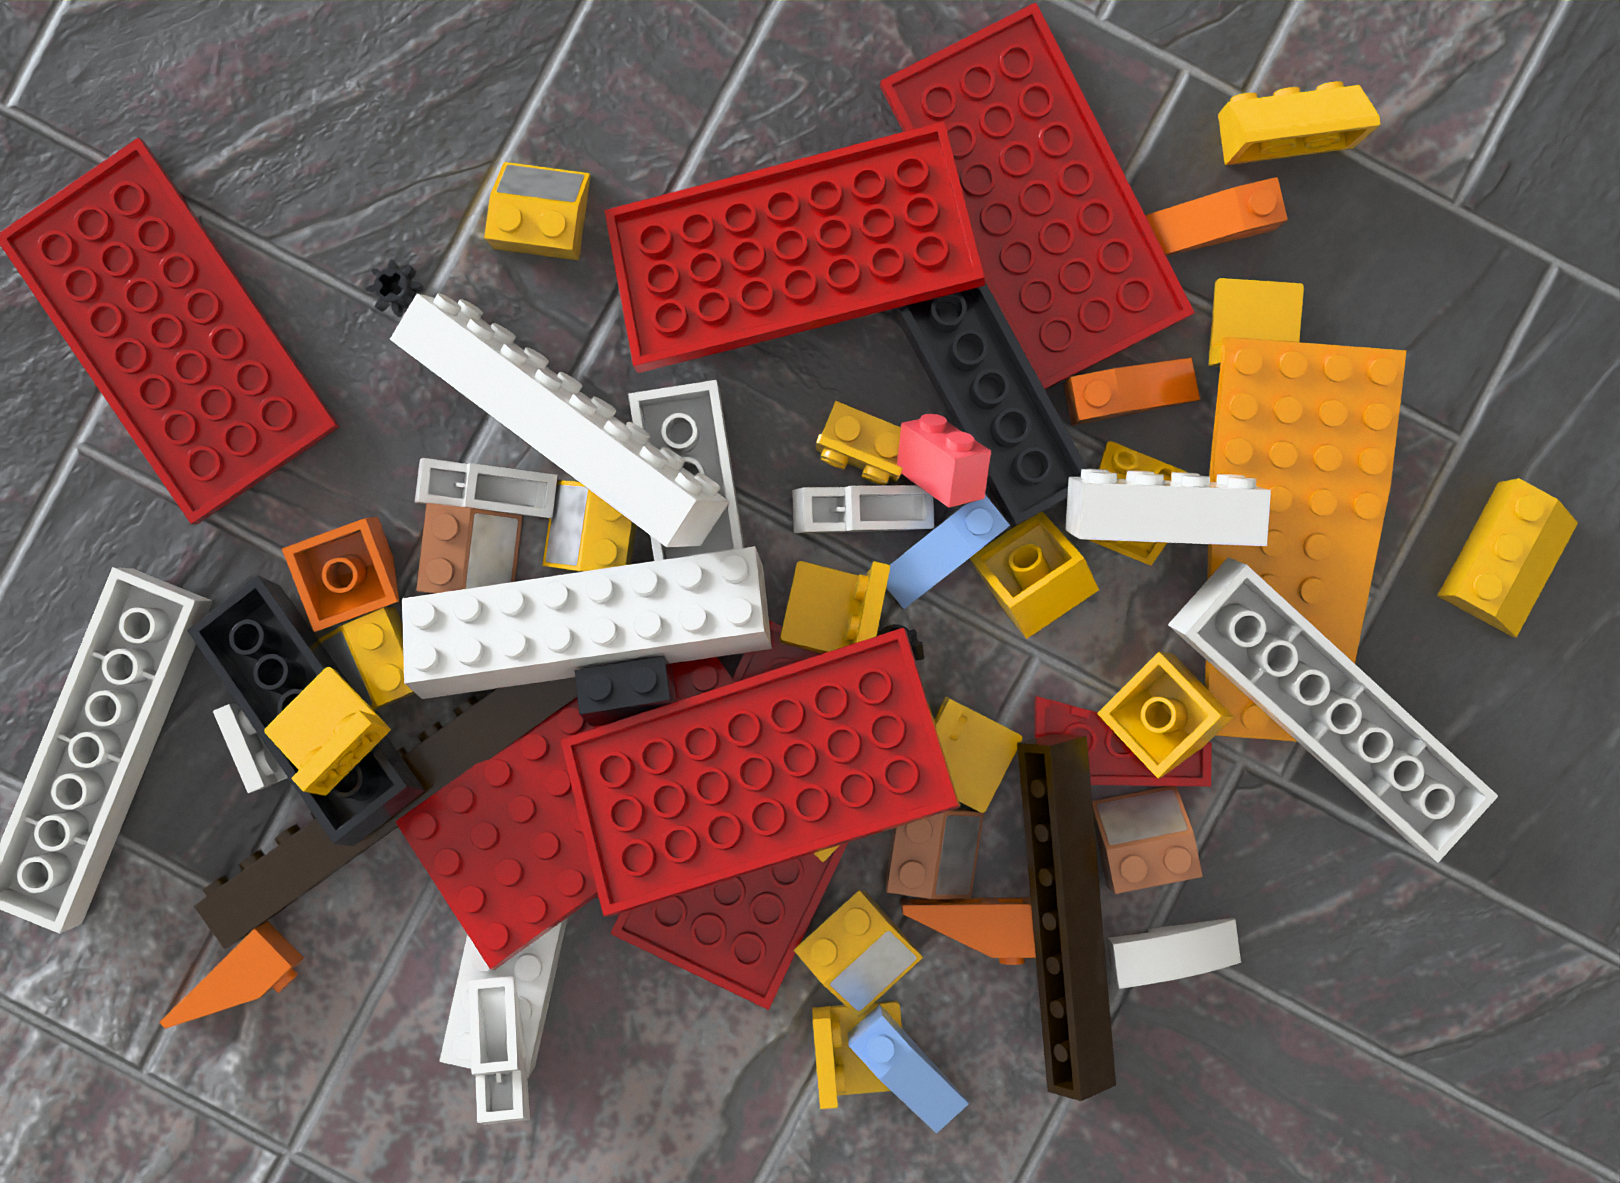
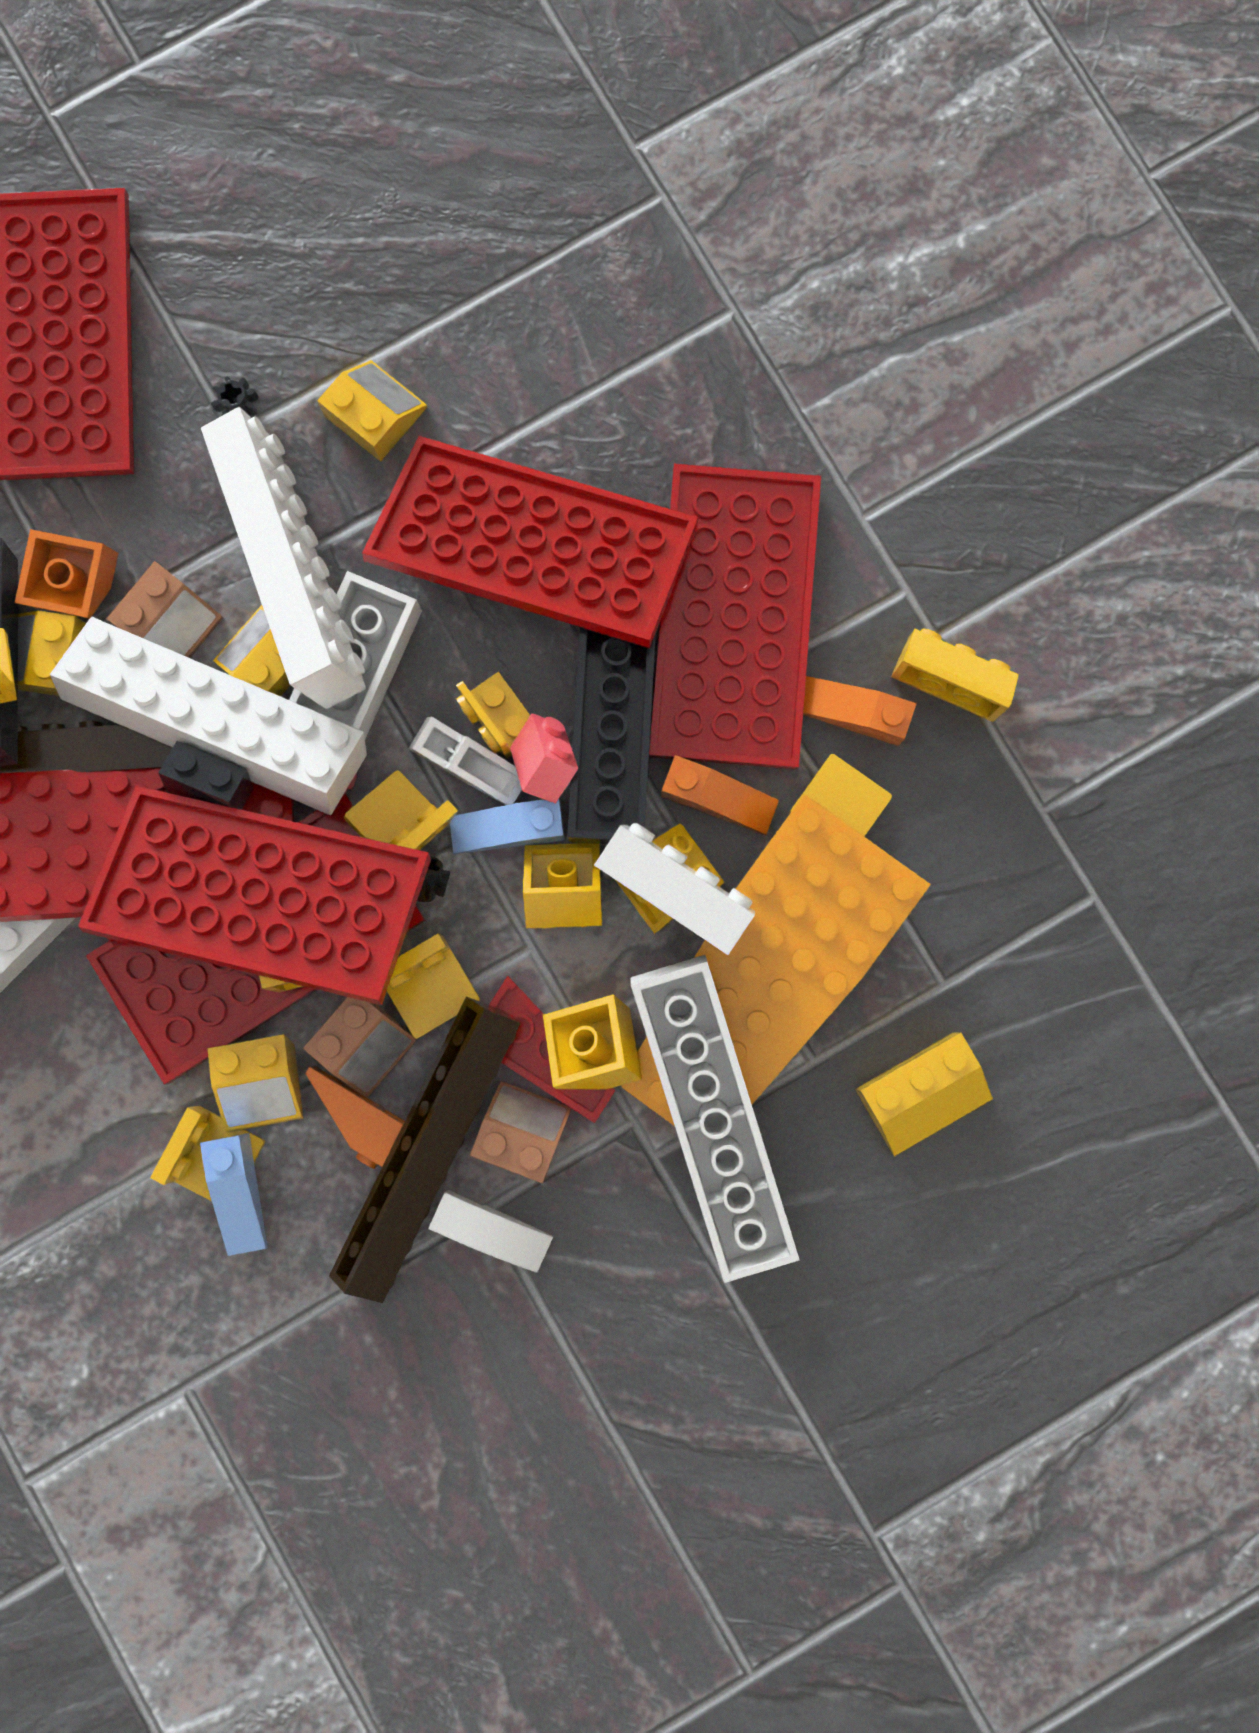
camera: 30 degrees right, 5 degrees down
(486, 487) = (207, 579): white slope -> none

